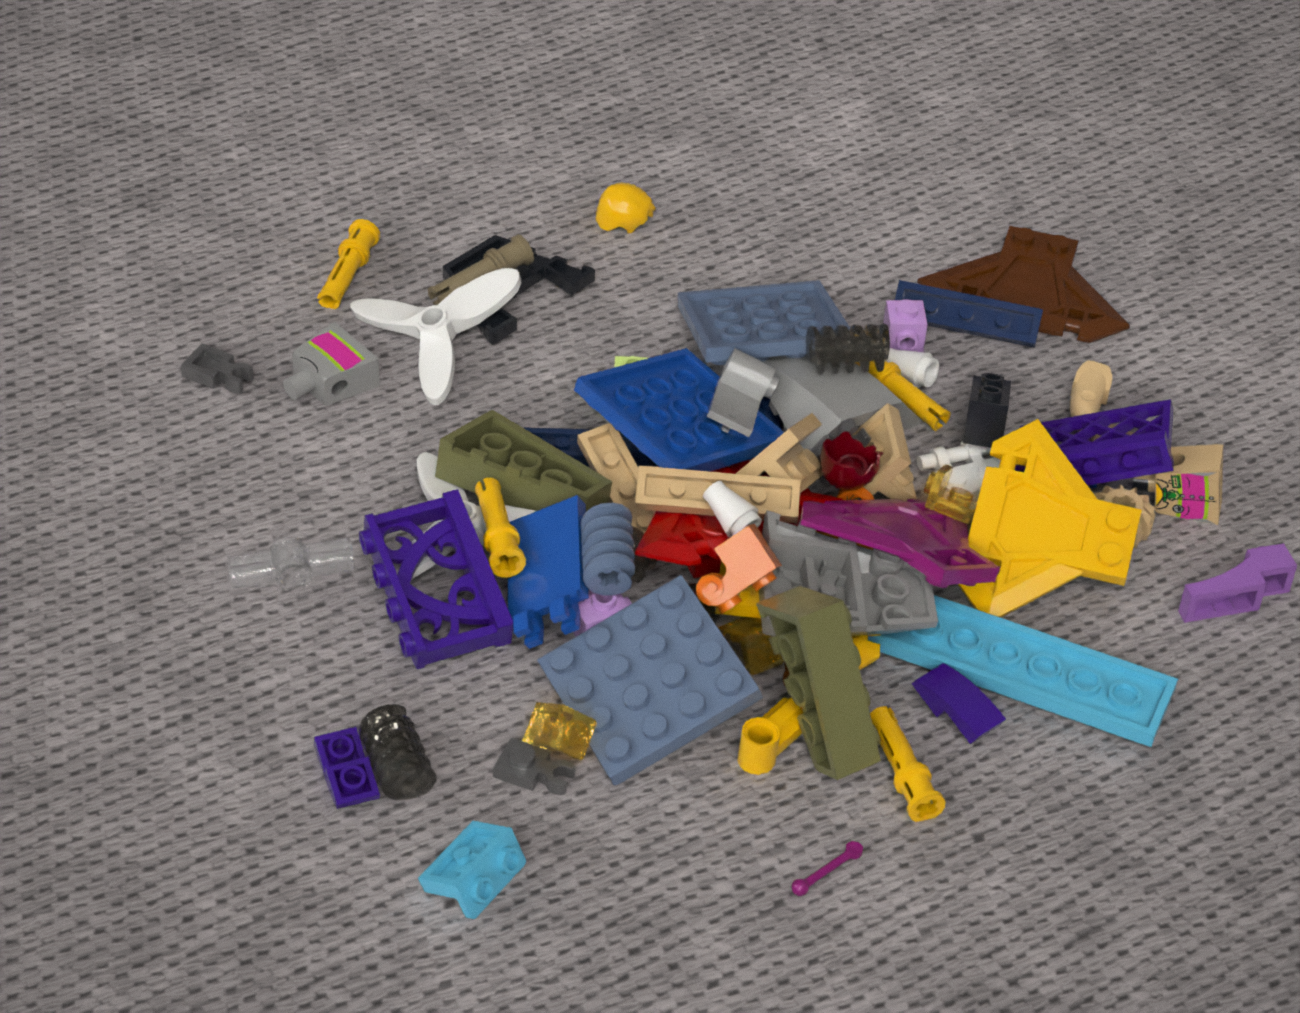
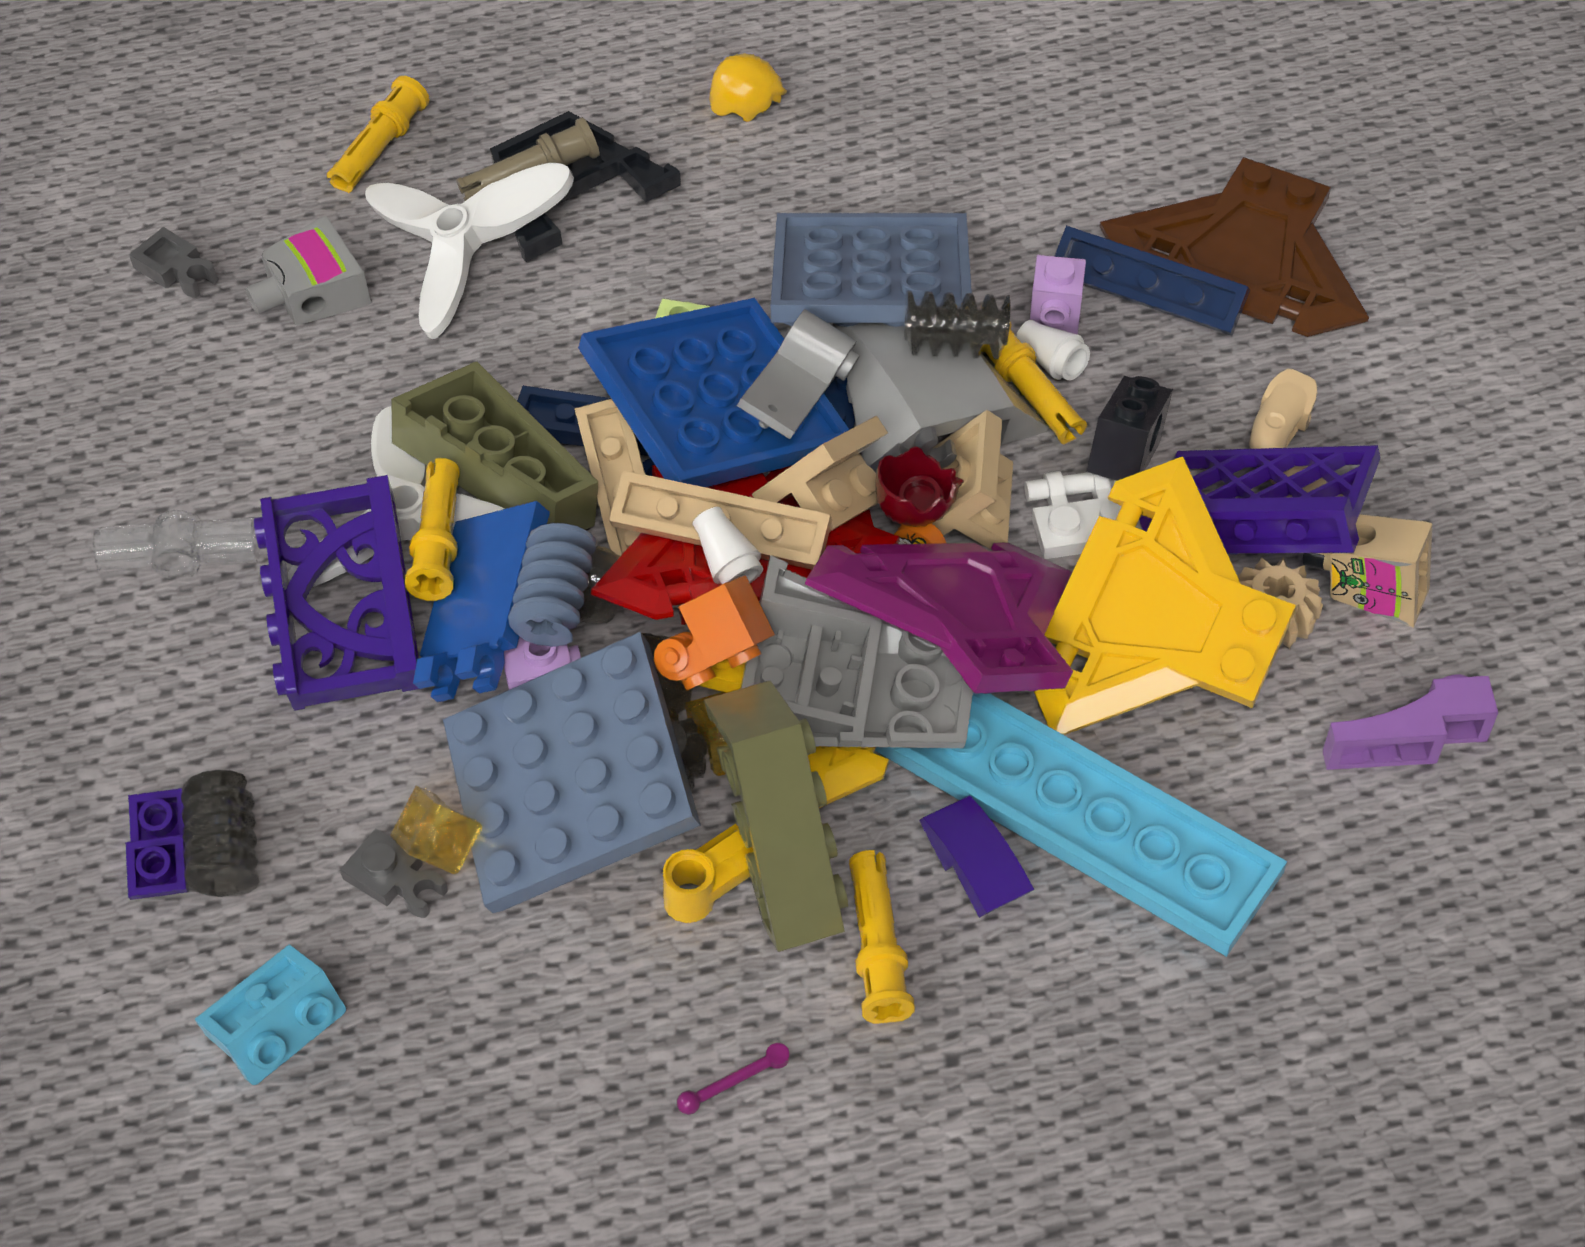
camera: 15 degrees right, 10 degrees up
(953, 503) = (1039, 554): clear yellow bracket -> none

